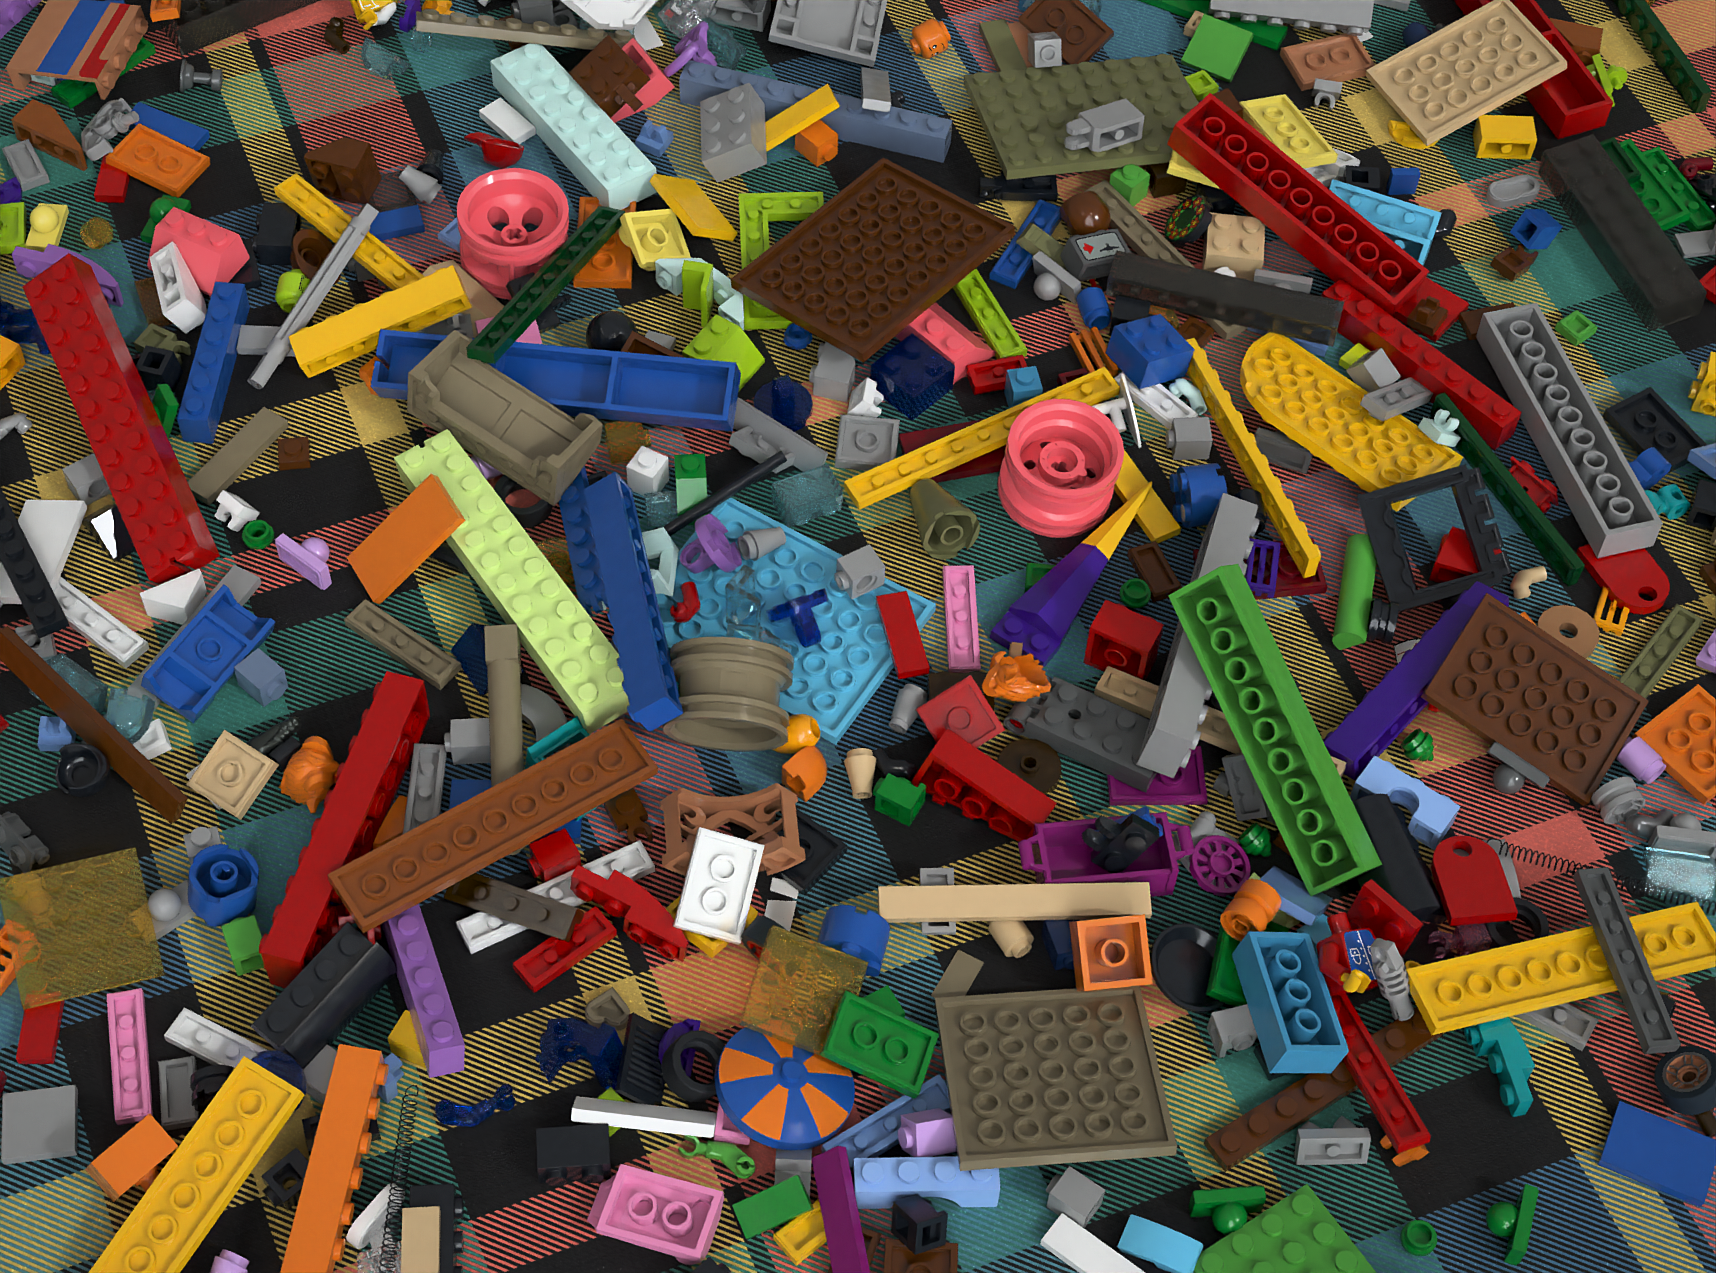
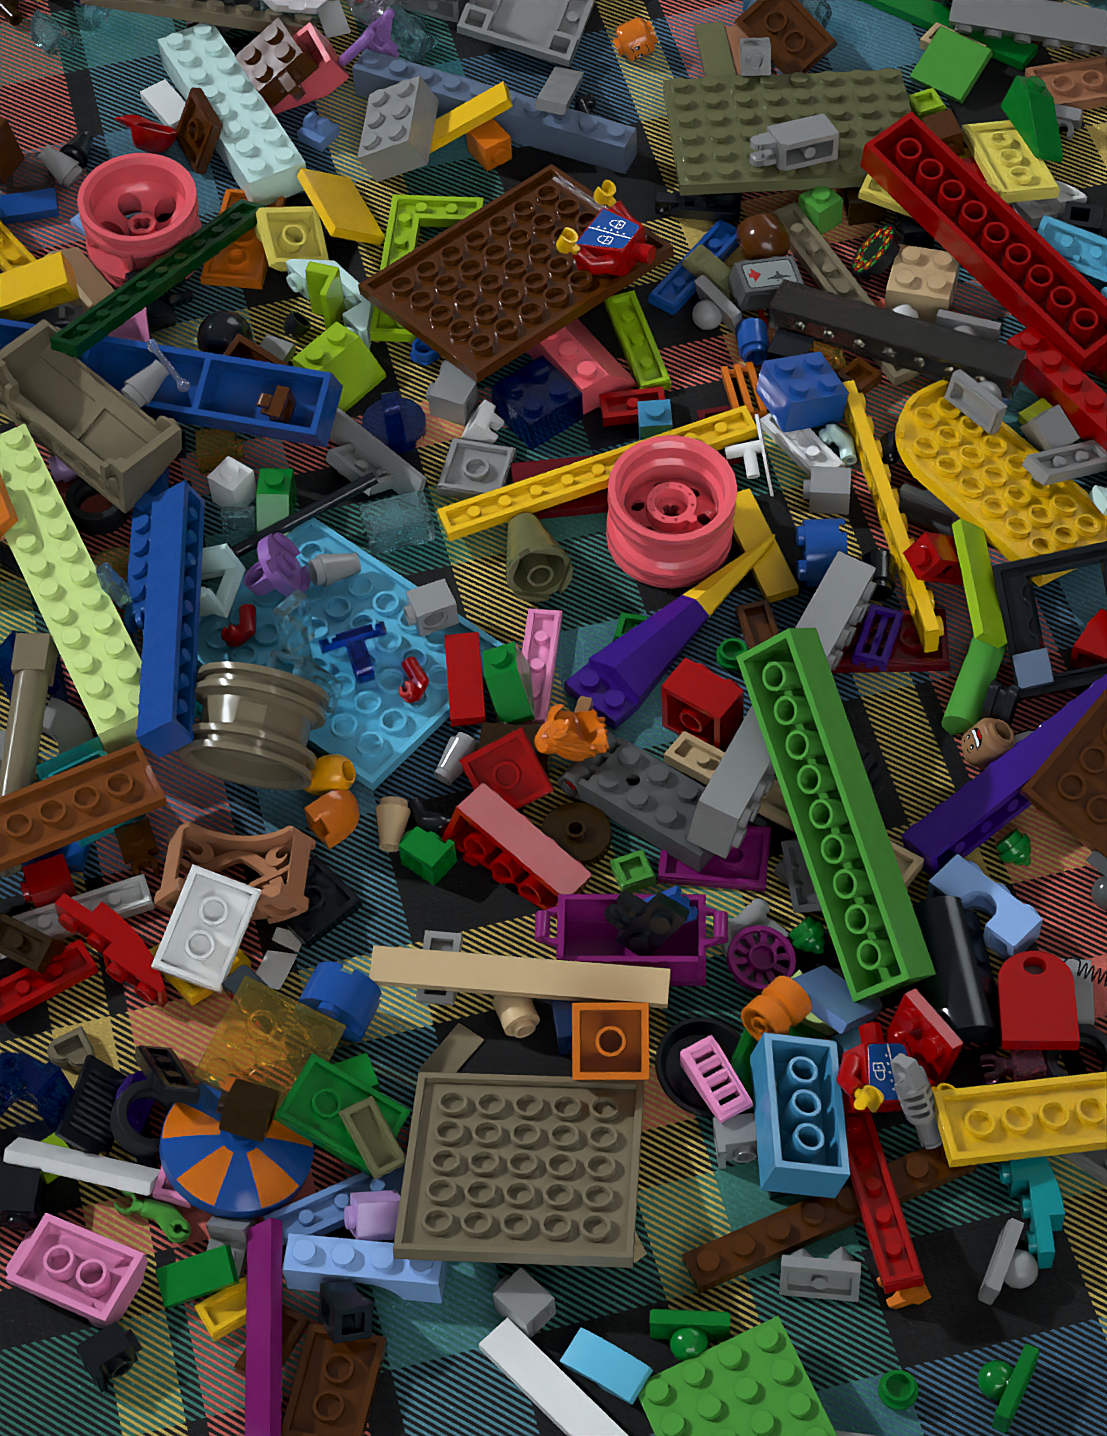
camera: 15 degrees right, 0 degrees up
(546, 142) = (198, 130): none -> reddish brown tile
(558, 385) = (144, 385): none -> light grey cone
(561, 349) = (182, 384): none -> clear hinge
(566, 574) = (113, 585): none -> clear light blue tile
(673, 320) = (296, 325): none -> black hinge
(684, 397) = (278, 407): none -> reddish brown tile
(709, 1024) = (167, 1074): none -> black tile
(798, 1048) = (248, 1109): none -> dark brown brick
(859, 641) = (417, 681): none -> red arm
(914, 1062) = (373, 1137): none -> olive tile
(944, 636) = (509, 683): none -> green slope
(962, 223) = (610, 241): none -> torso
(1086, 797) = (633, 871): none -> bright green tile
(1207, 959) = (701, 1059): none -> bright pink slope
(1236, 393) = (889, 448): none -> black arm
(1301, 90) = (1034, 117): none -> green slope
(1307, 349) = (977, 400): none -> light grey tile
(1311, 493) = (935, 559): none -> red brick
(1346, 512) = (979, 583): none -> lime tile
(1378, 654) = (987, 742): none -> medium nougat head
(1405, 585) = (1033, 669): none -> sand blue tile
(1490, 1115) = (1008, 1265): none -> light grey tile

